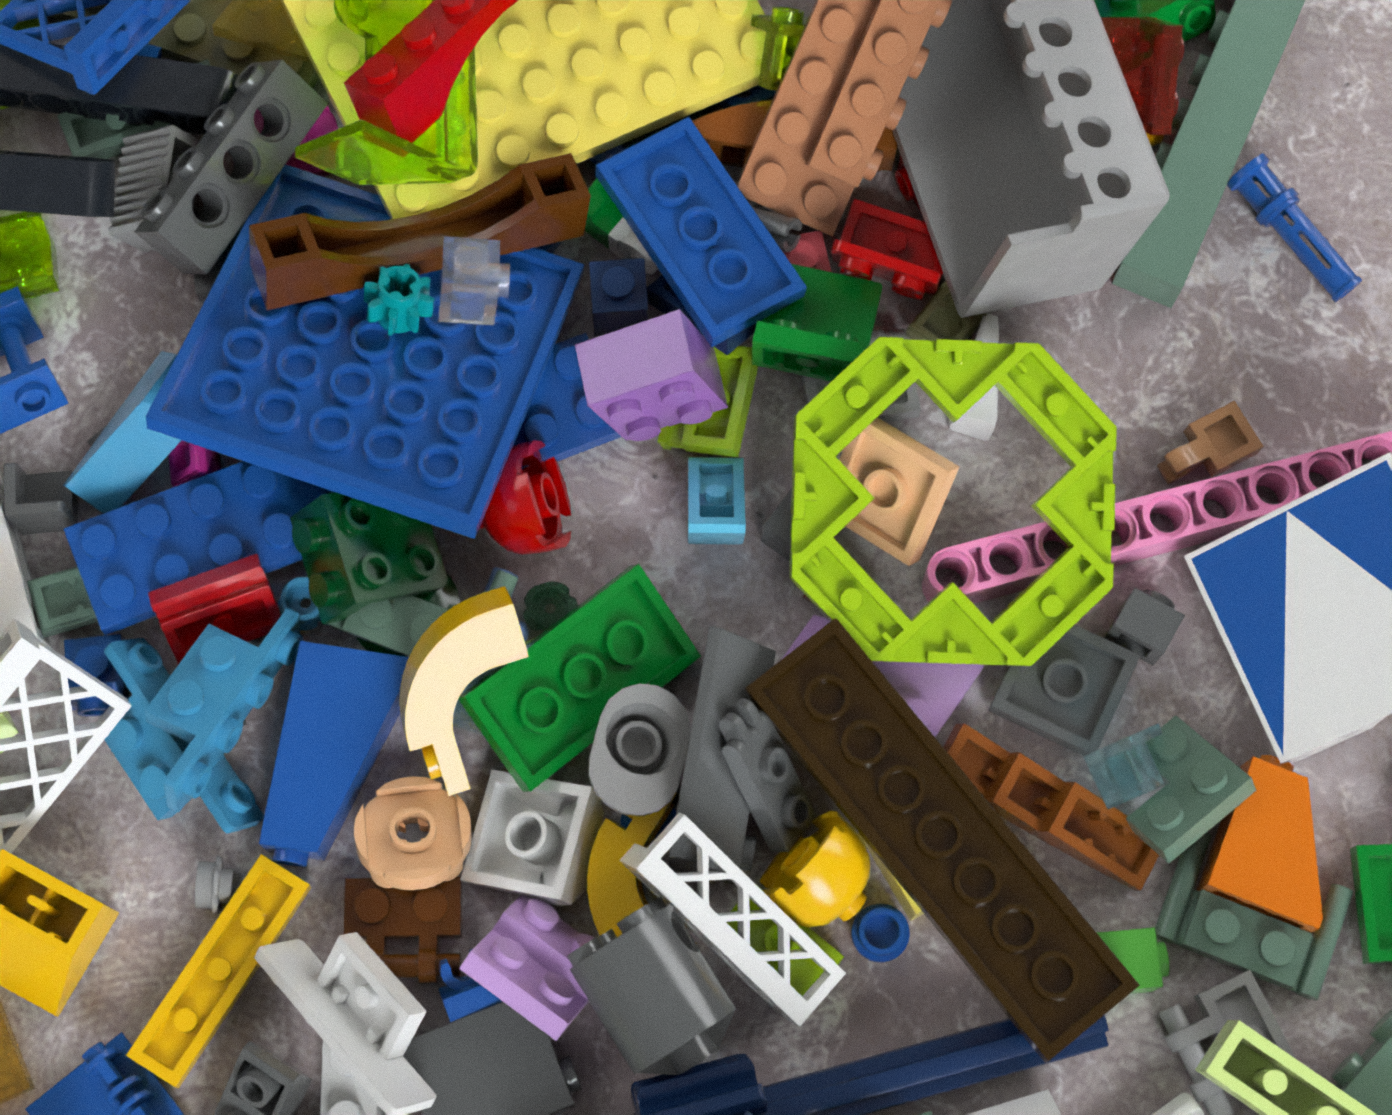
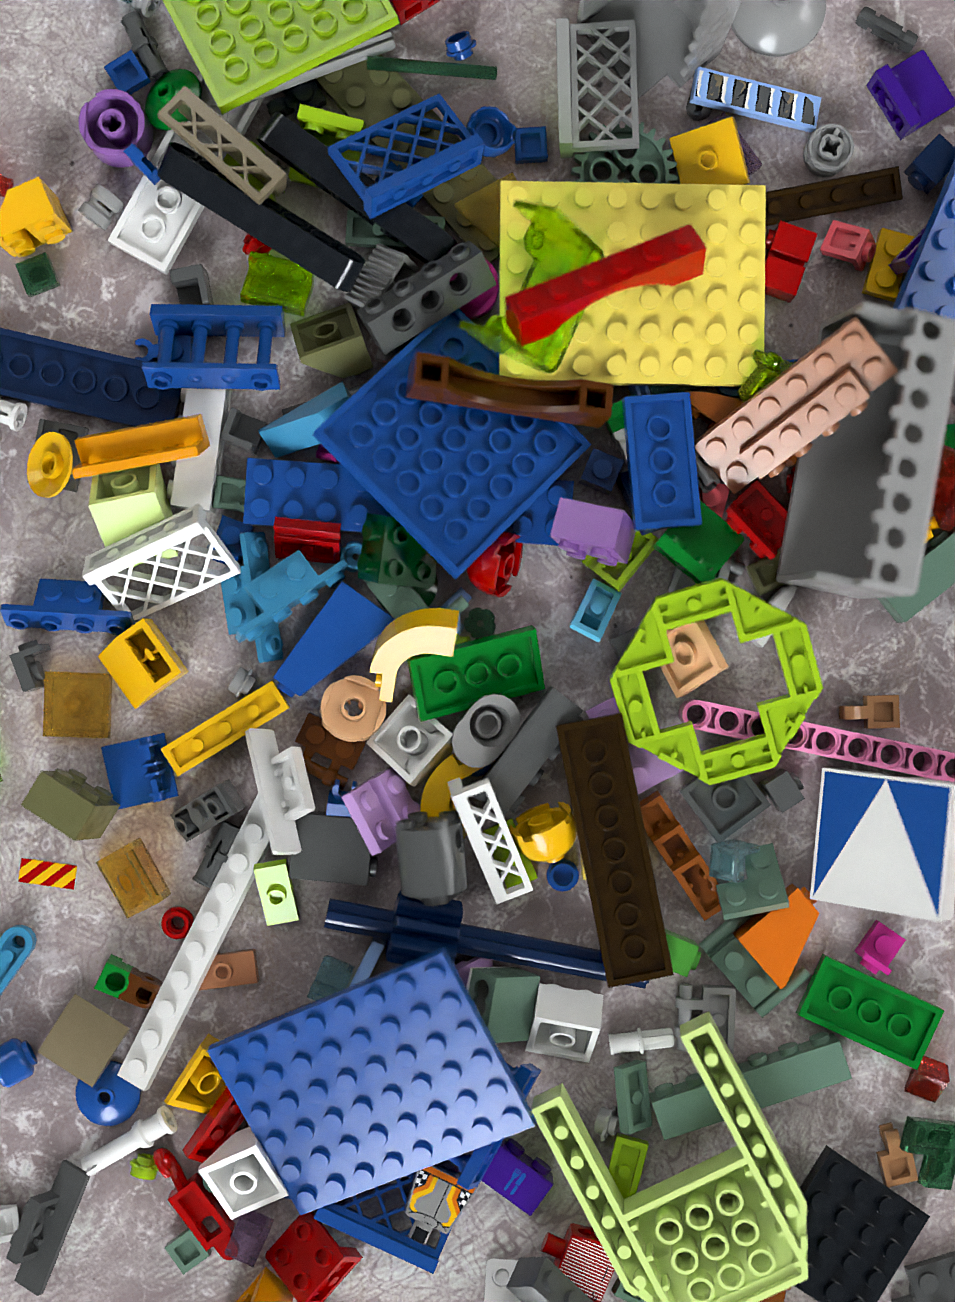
camera: 30 degrees right, 15 degrees up
(124, 304) = (332, 342): none -> olive slope
(398, 299) = (473, 431): teal gear -> none
(471, 280) = (523, 432): clear brick -> none
(765, 776) = (544, 773): dark grey hinge -> none

